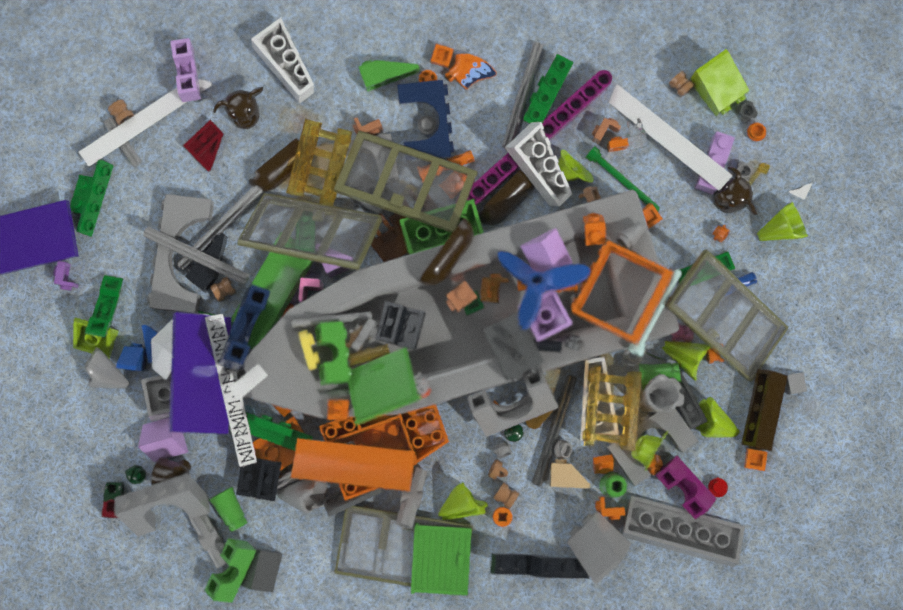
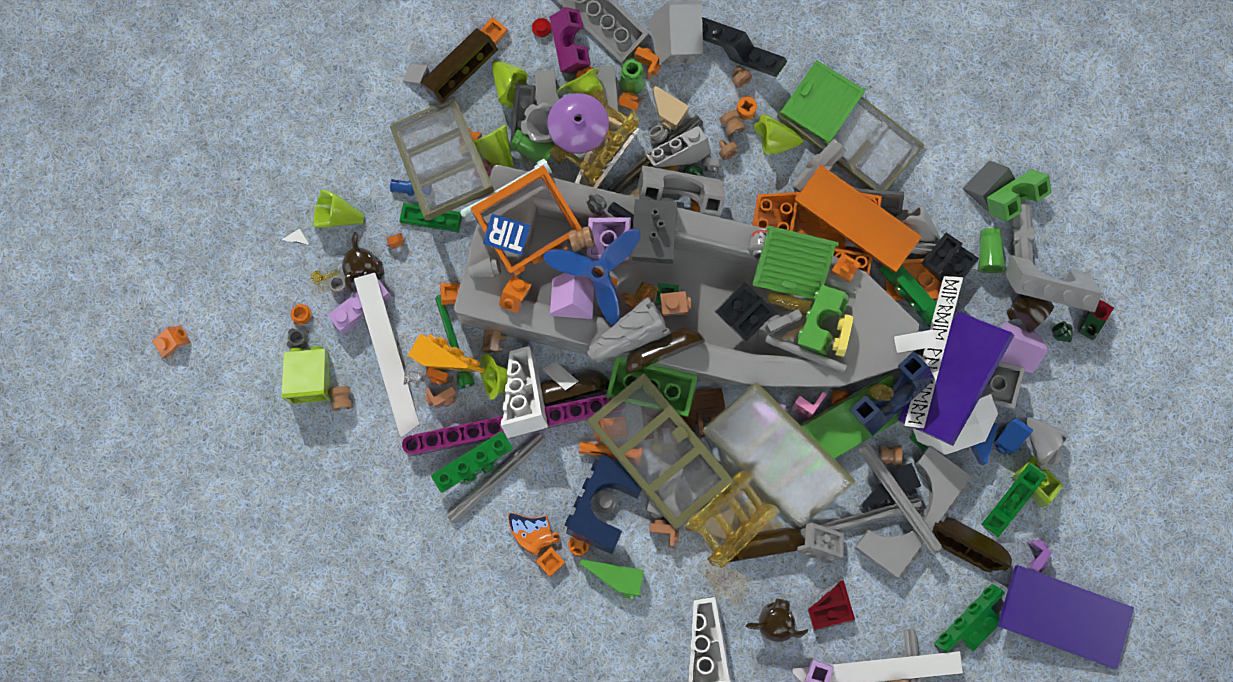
camera: 150 degrees left, 5 degrees down
(121, 255) = (971, 545): none -> dark brown brick
(238, 188) = (822, 543): none -> light grey bracket
(255, 326) = (880, 392): none -> clear yellow pin
(478, 255) = (630, 332): none -> light grey cone
(521, 200) = (560, 375): none -> white sticker
(521, 541) = (742, 77): none -> medium nougat tile
(535, 443) = (681, 150): none -> light grey slope
(567, 299) = (581, 239): none -> medium nougat wheel
(618, 409) = (574, 135): none -> medium lavender dish
(622, 157) = (436, 354): none -> light orange slope
(630, 268) = (506, 234): none -> blue sticker
(843, 52) = (170, 340): none -> orange bracket

